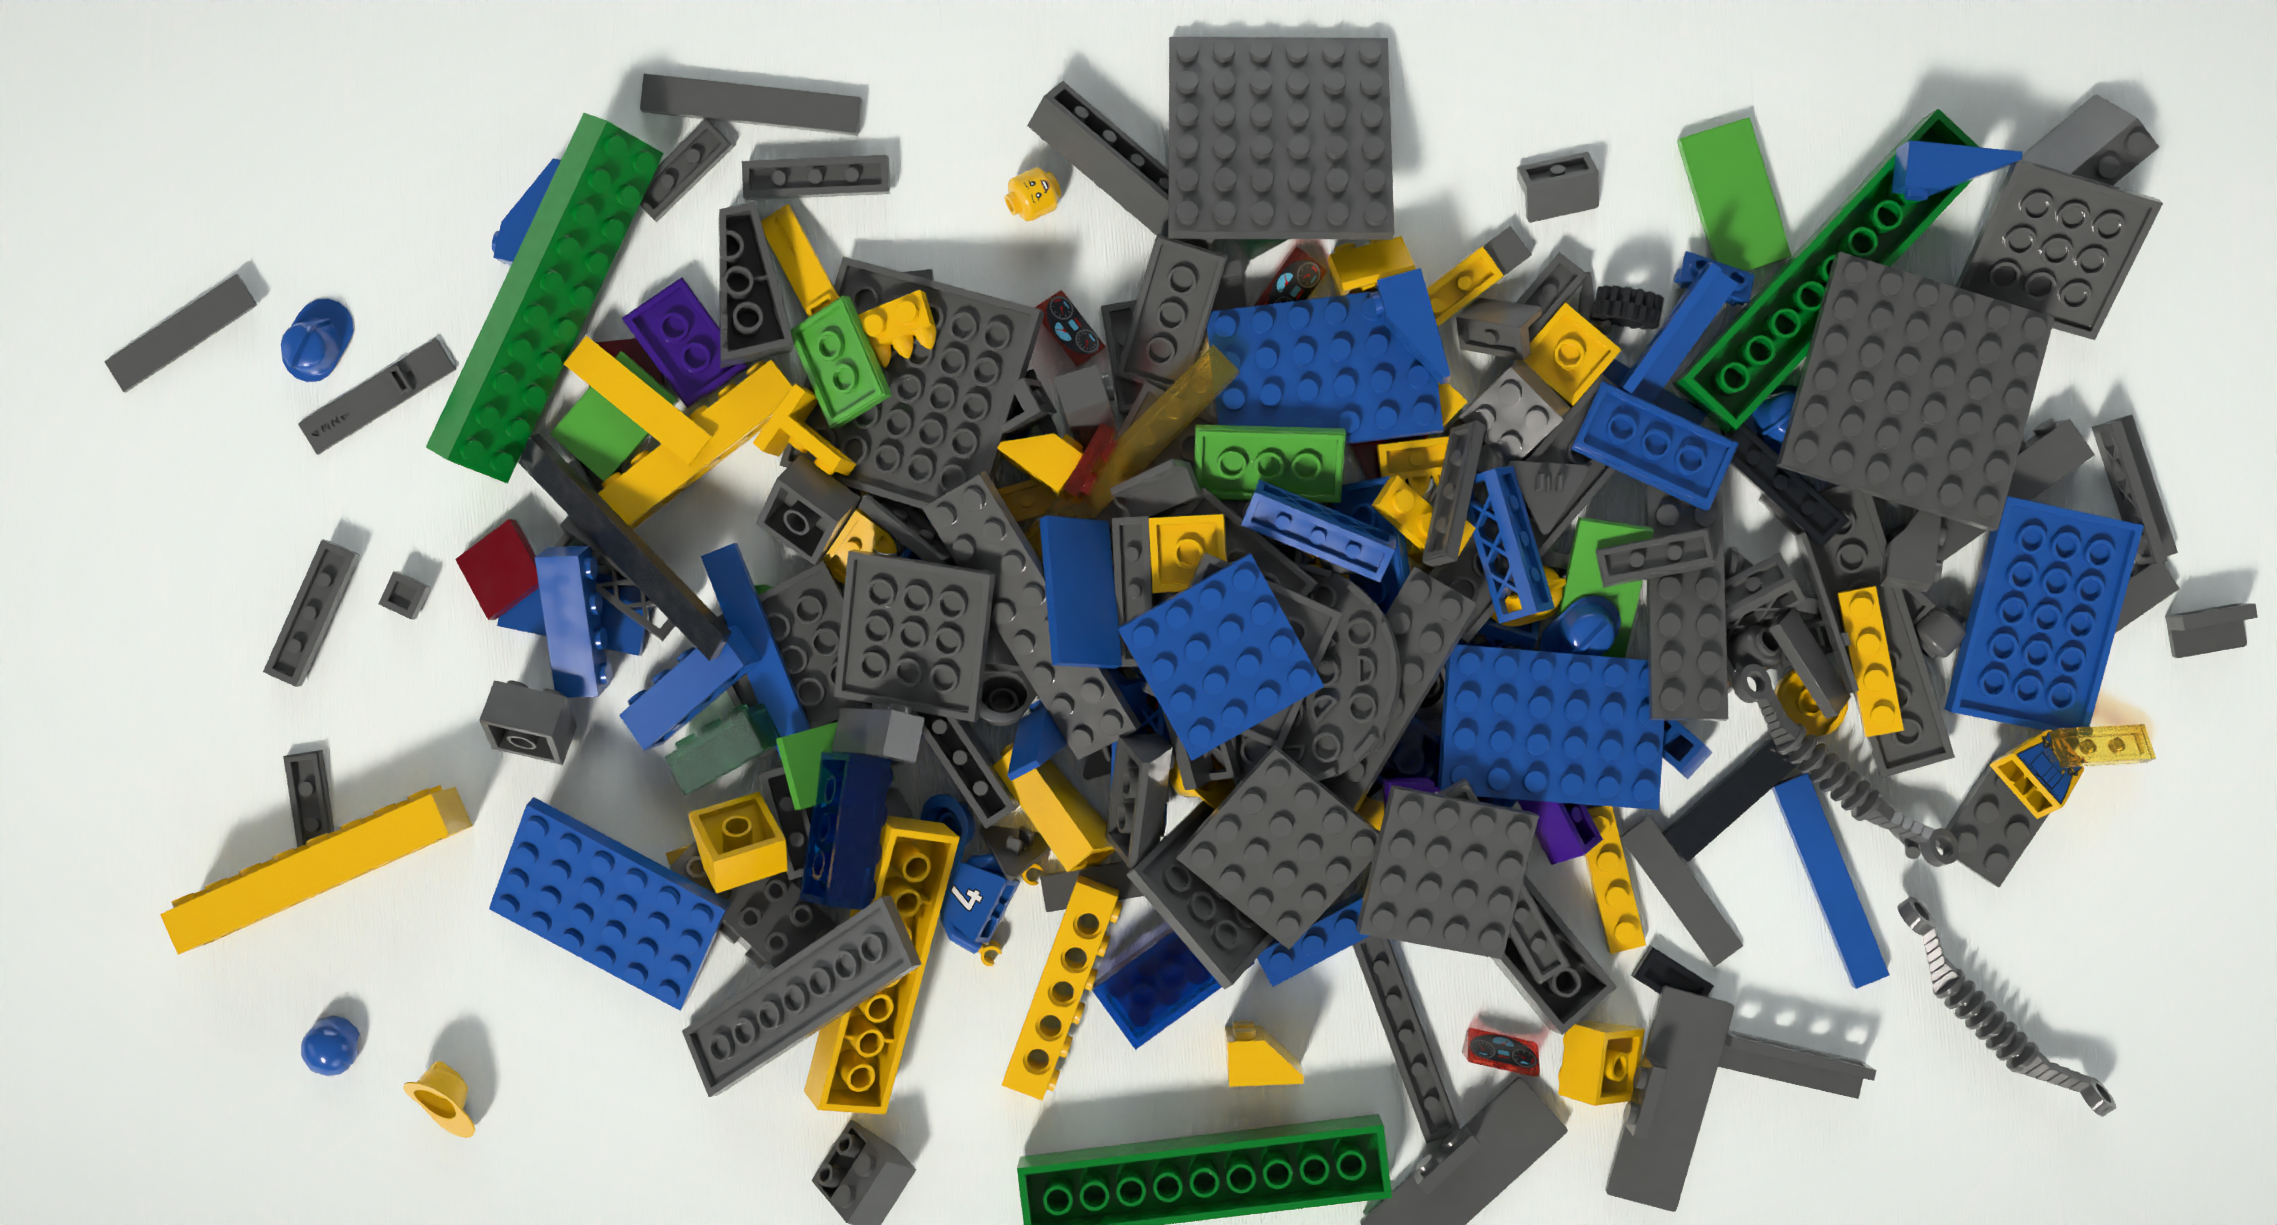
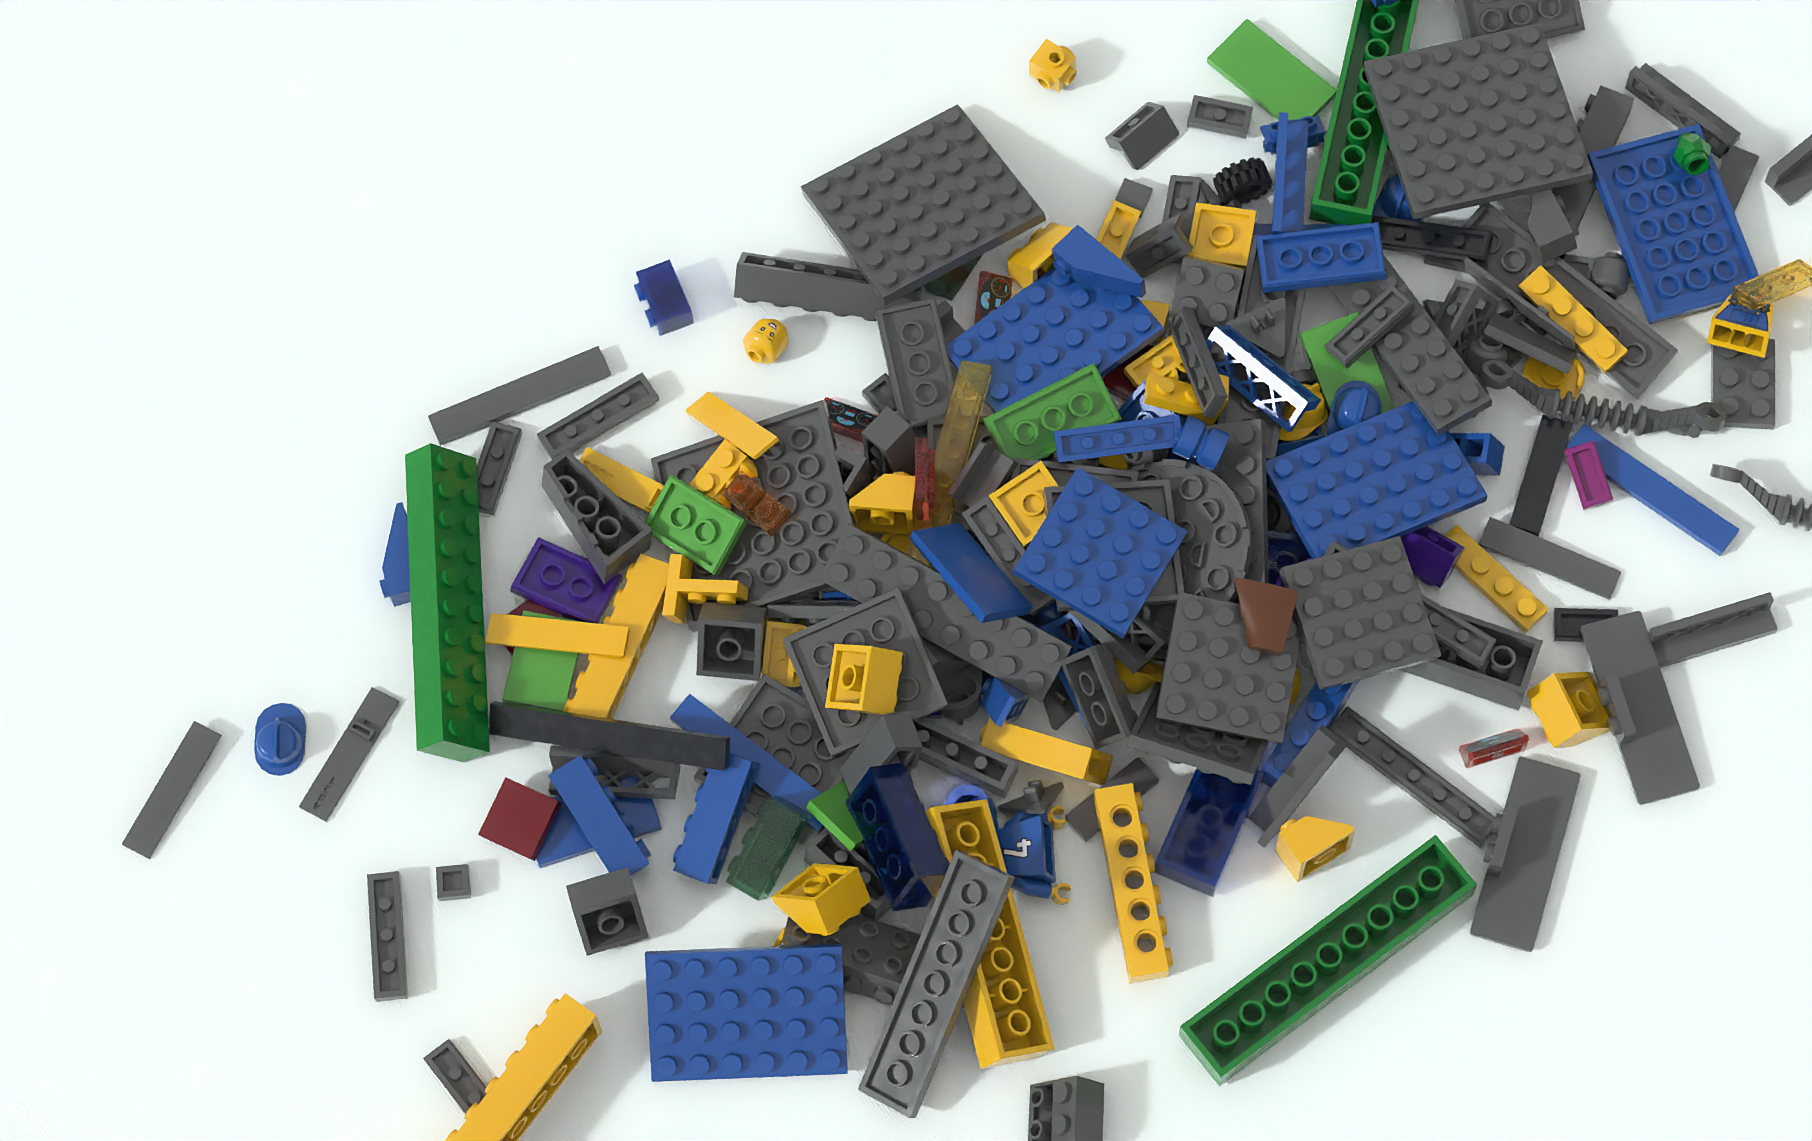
camera: 25 degrees left, 20 degrees down
(901, 651) = (864, 679): none -> yellow slope
(913, 381) = (756, 503): none -> clear orange slope
(938, 276) = (732, 425): none -> yellow piece
(955, 82) = (664, 298): none -> clear blue brick
(1279, 1002) = (1296, 783): none -> dark grey fence
(1347, 827) = (1266, 614): none -> reddish brown slope
(1394, 594) = (1201, 443): none -> blue wheel
(1512, 55) = (1053, 66): none -> yellow brick
(1651, 214) = (1219, 116): none -> dark grey plate
(1776, 831) = (1588, 475): none -> magenta tile
(2115, 560) = (1692, 153): none -> green rock

